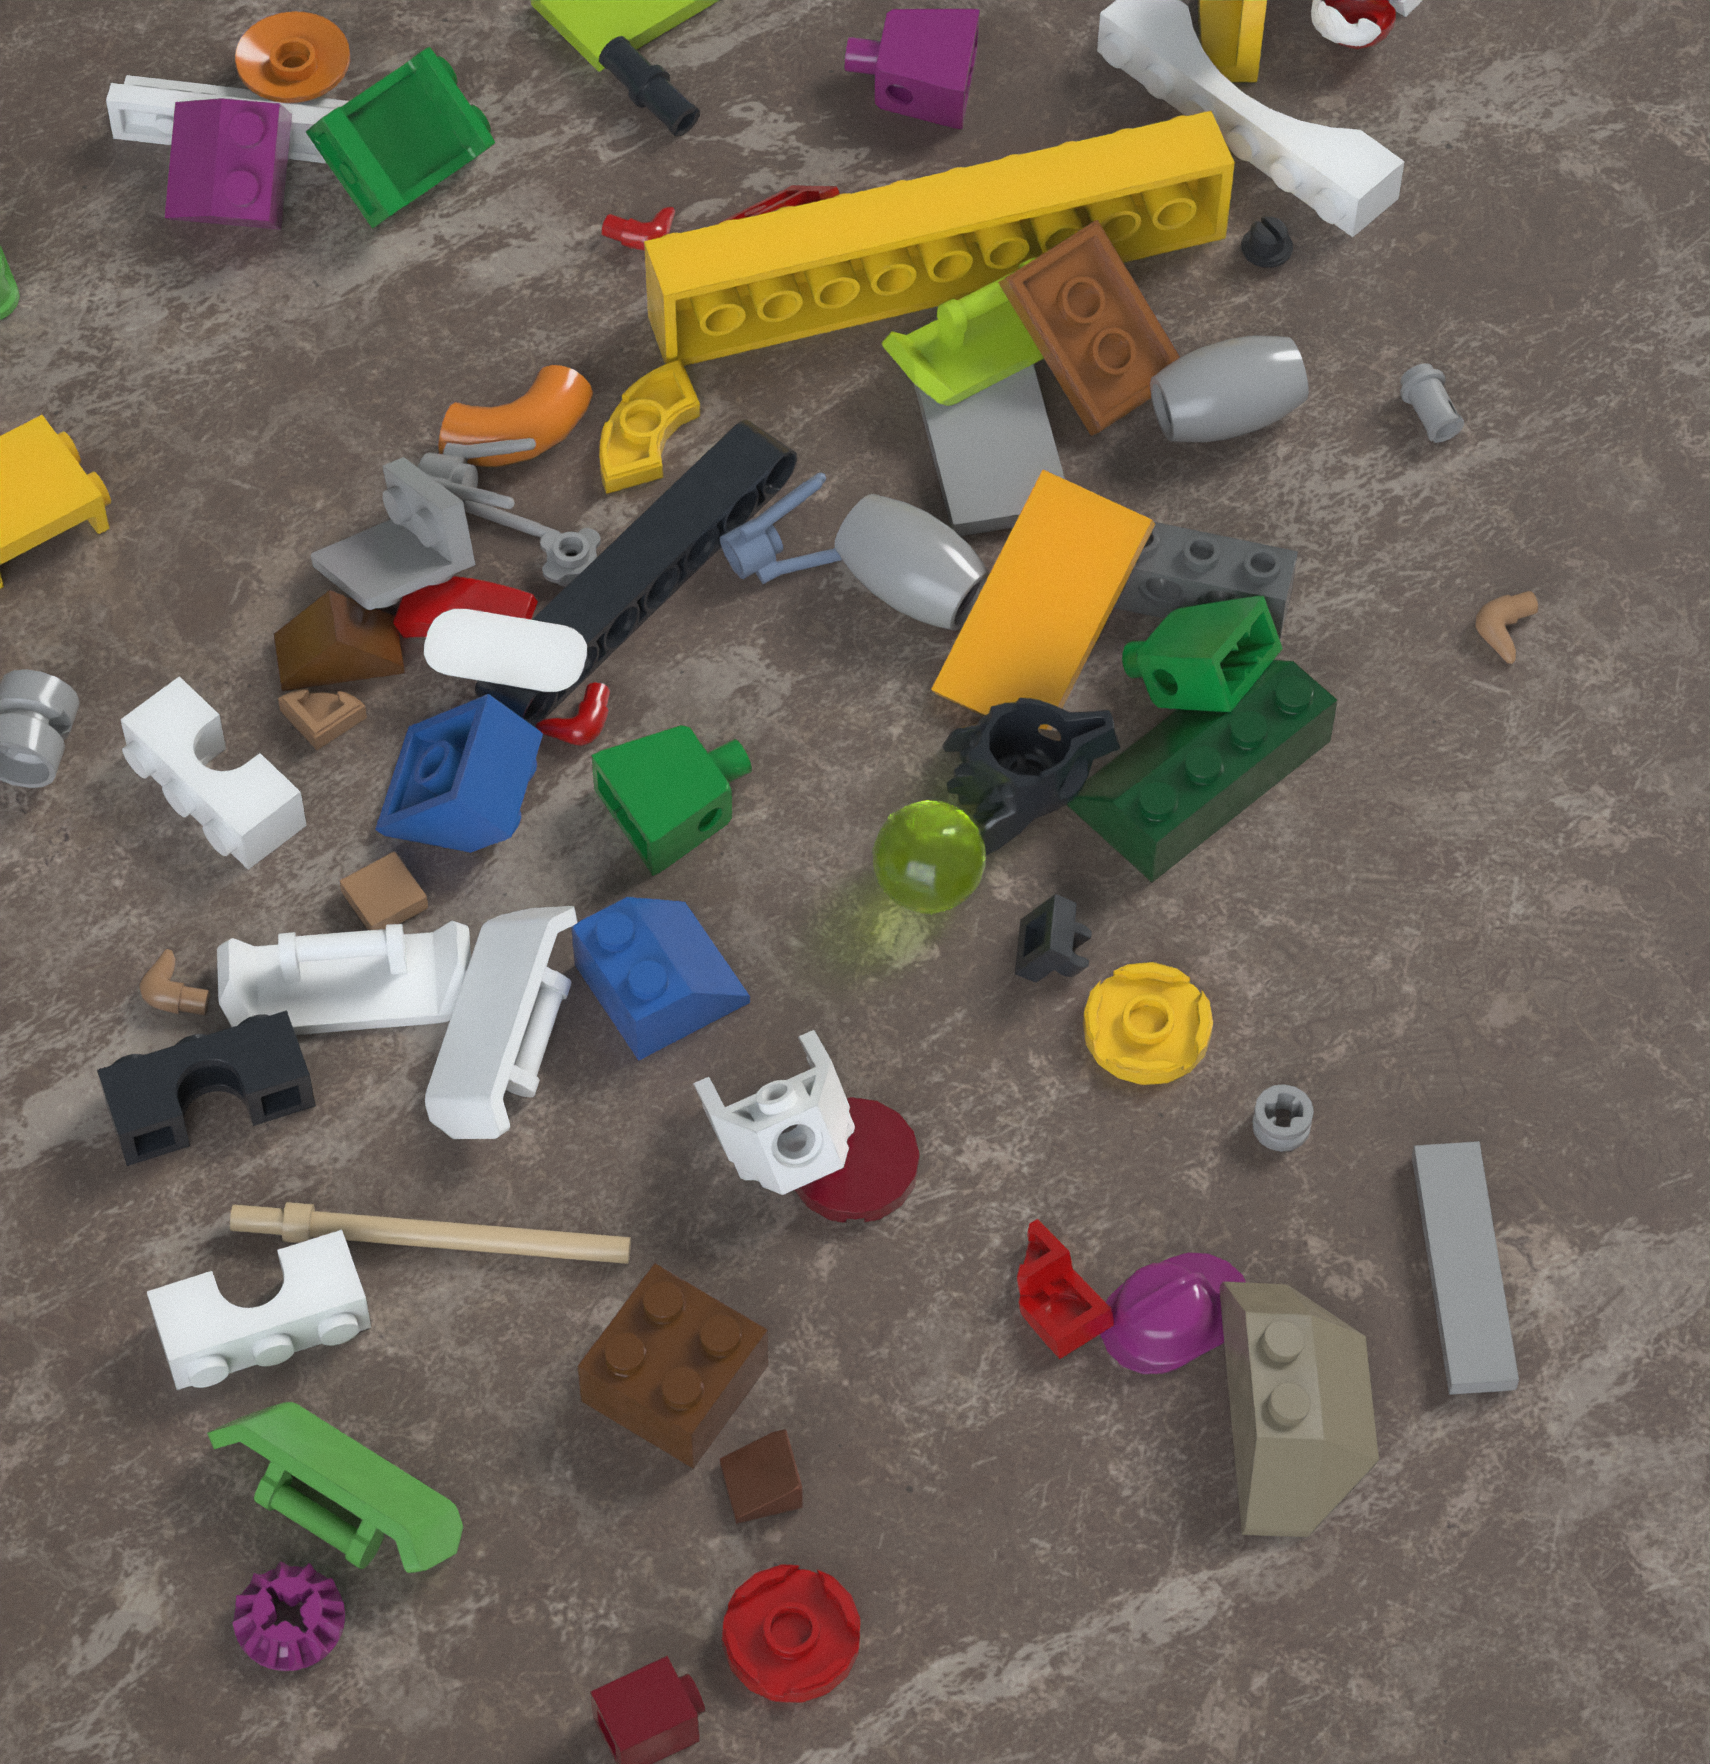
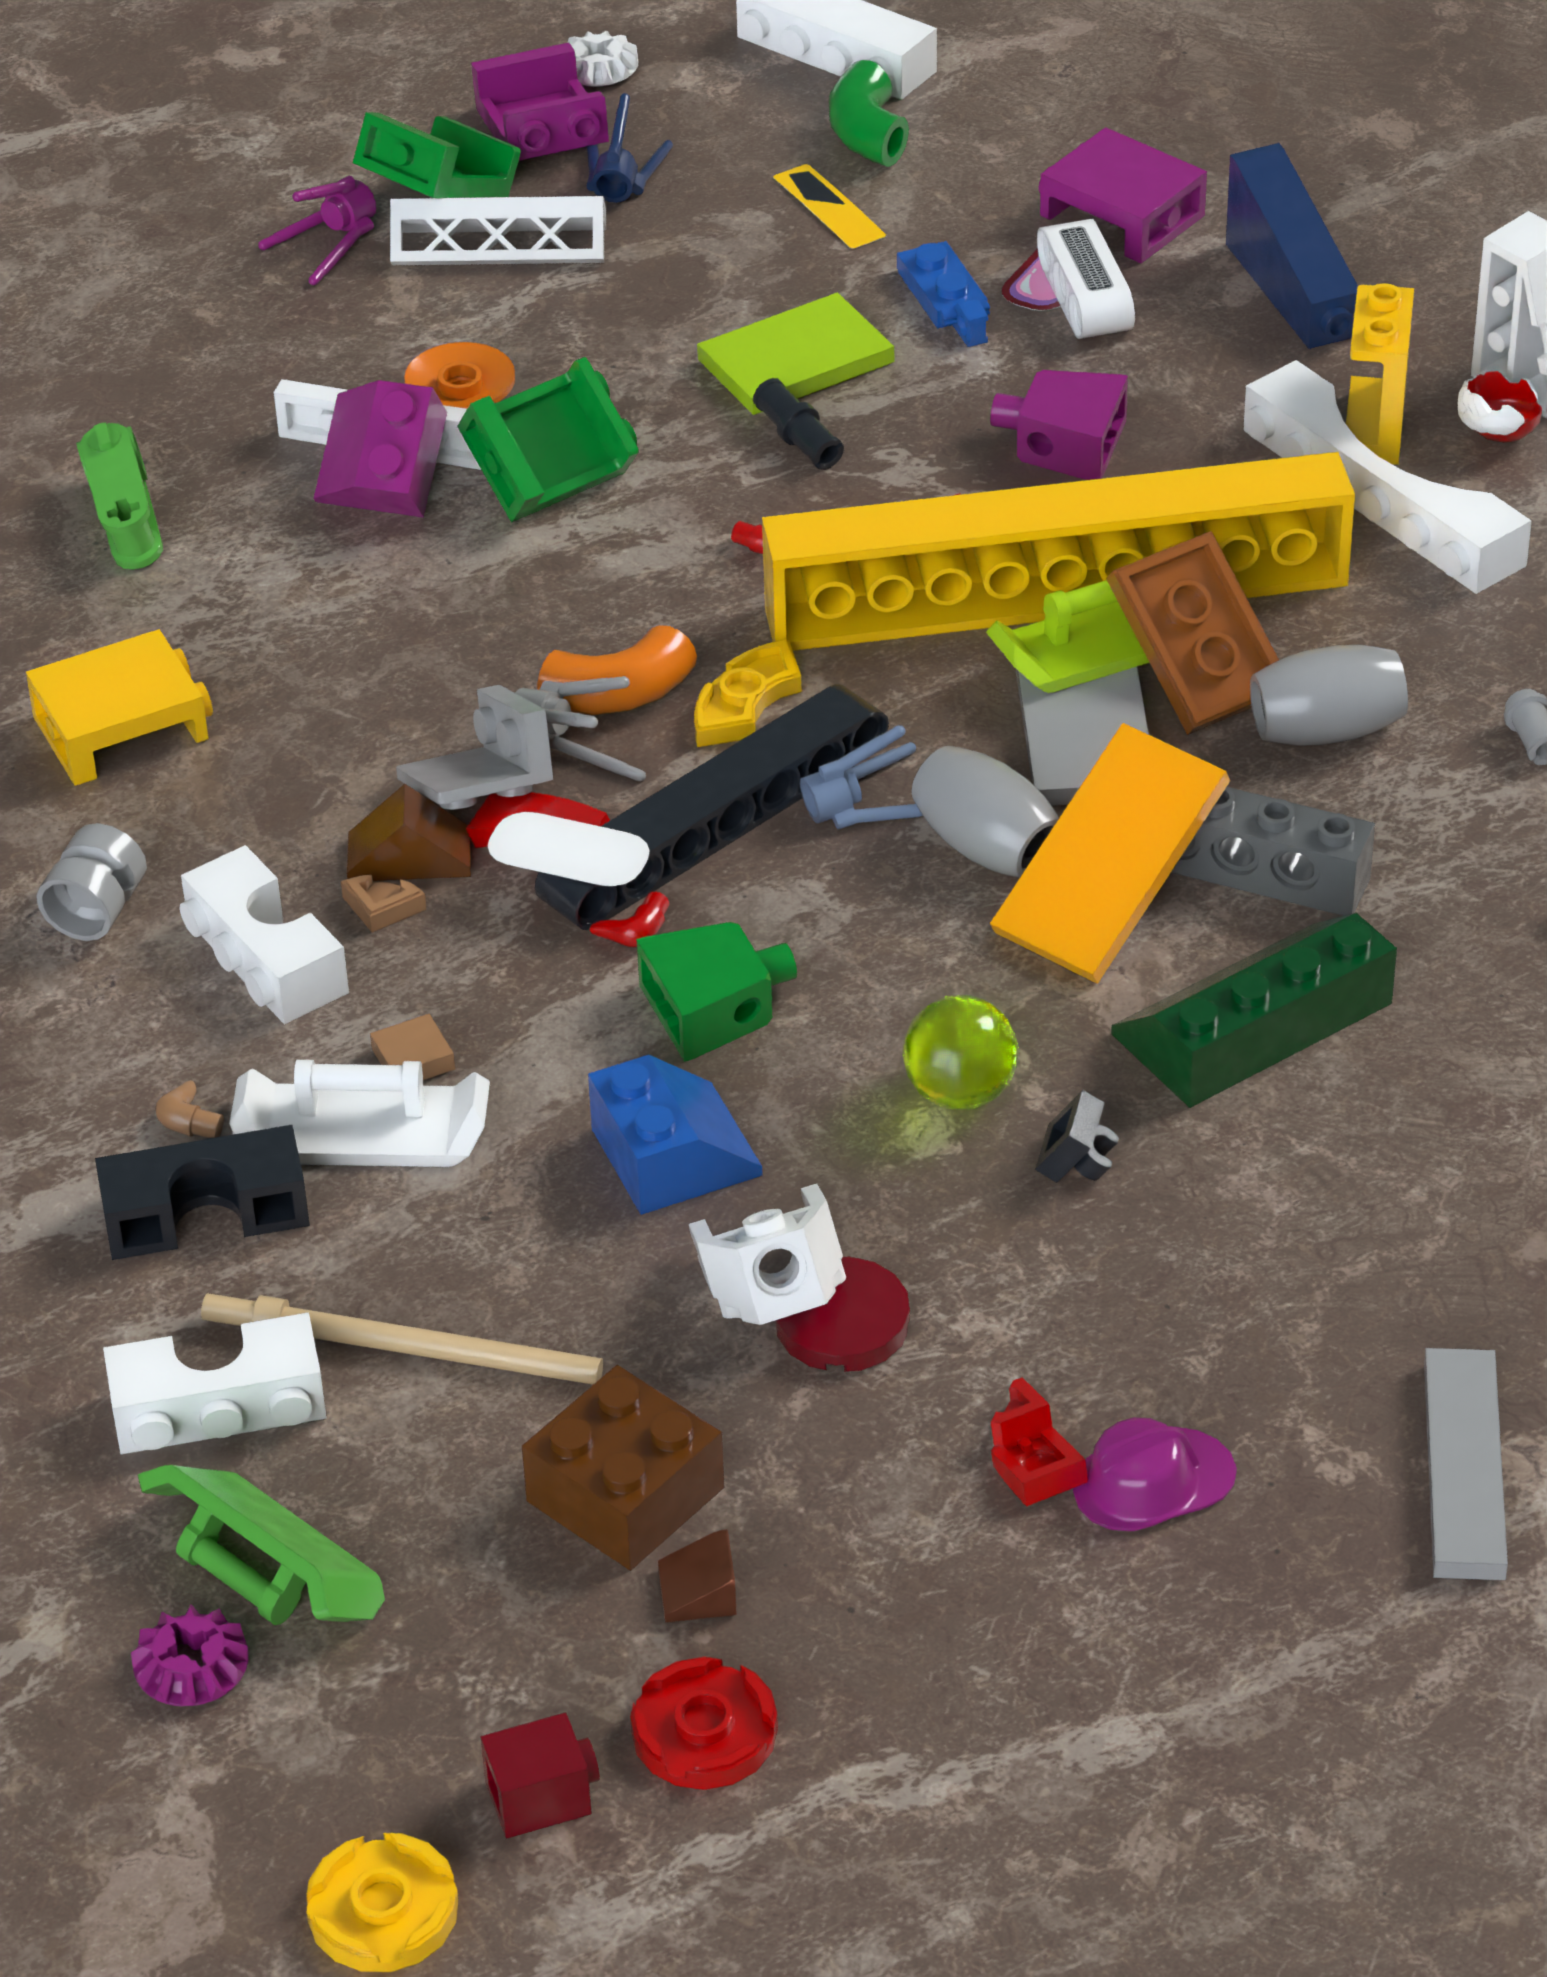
camera: 10 degrees right, 15 degrees down
(461, 777) = (509, 956): blue slope -> none
(499, 1023) = (476, 1184): white piece -> none
(563, 568) = (646, 781): light grey plate -> none
(1025, 770) = (1063, 993): black piece -> none
(1147, 1024) = (1165, 1224): yellow tile -> none
(1205, 654) = (1245, 912): green torso -> none
(1264, 1118) = (1292, 1332): light grey bush -> none
(1267, 243) = (1388, 587): black piece -> none
(1295, 1407) = (1266, 1572): dark tan wedge -> none

